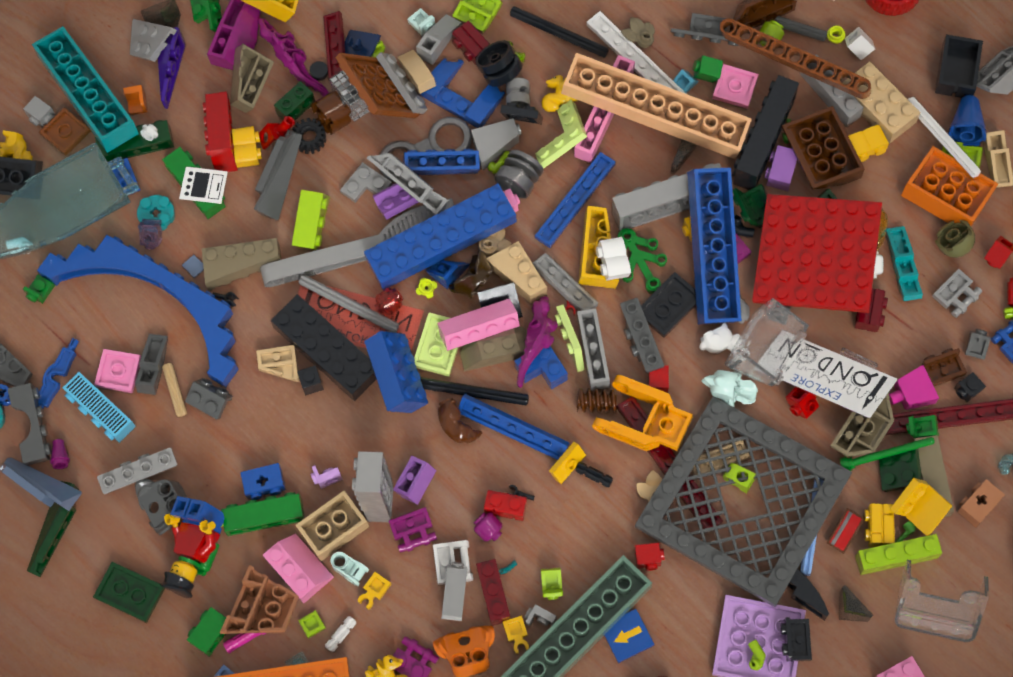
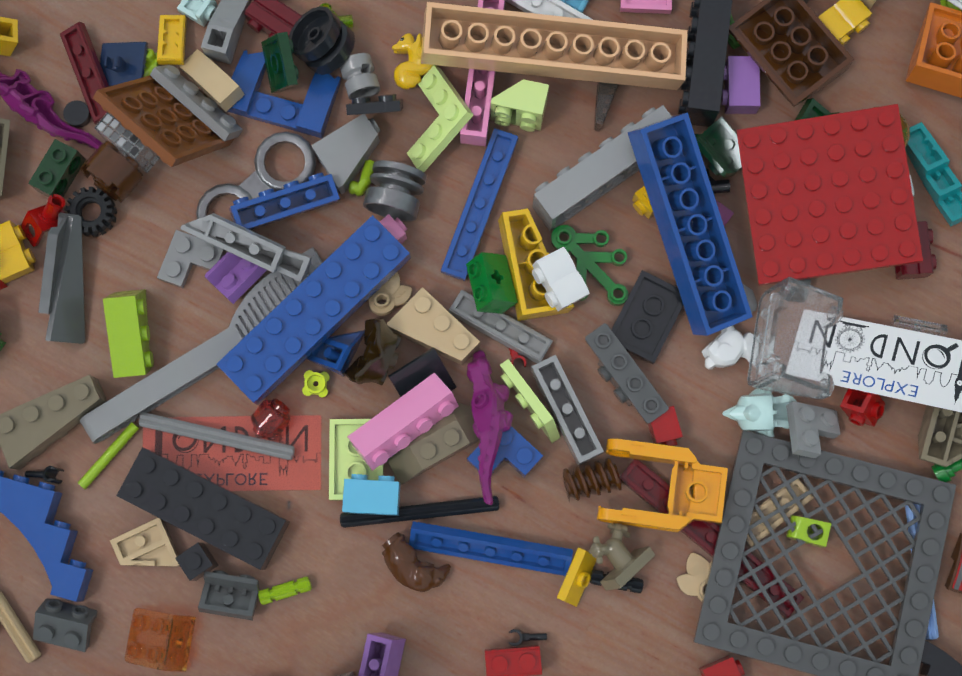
camera: 20 degrees left, 10 degrees up
(270, 424) = (159, 640): none -> clear orange bracket
(271, 297) = (108, 455): none -> lime bar
(325, 408) = (229, 595): none -> dark grey bracket
(364, 417) = (284, 590): none -> lime axle
(396, 372) = (310, 520): blue brick -> none
(397, 38) = (171, 39): none -> yellow plate
(441, 367) = (371, 496): none -> medium azure brick
(465, 70) = (279, 62): none -> dark green plate
(566, 251) = (491, 283): none -> green brick
(599, 452) = (624, 562): none -> dark tan piece
(623, 140) = (521, 105): none -> yellowish green slope
(759, 403) = (806, 426): none -> light grey plate

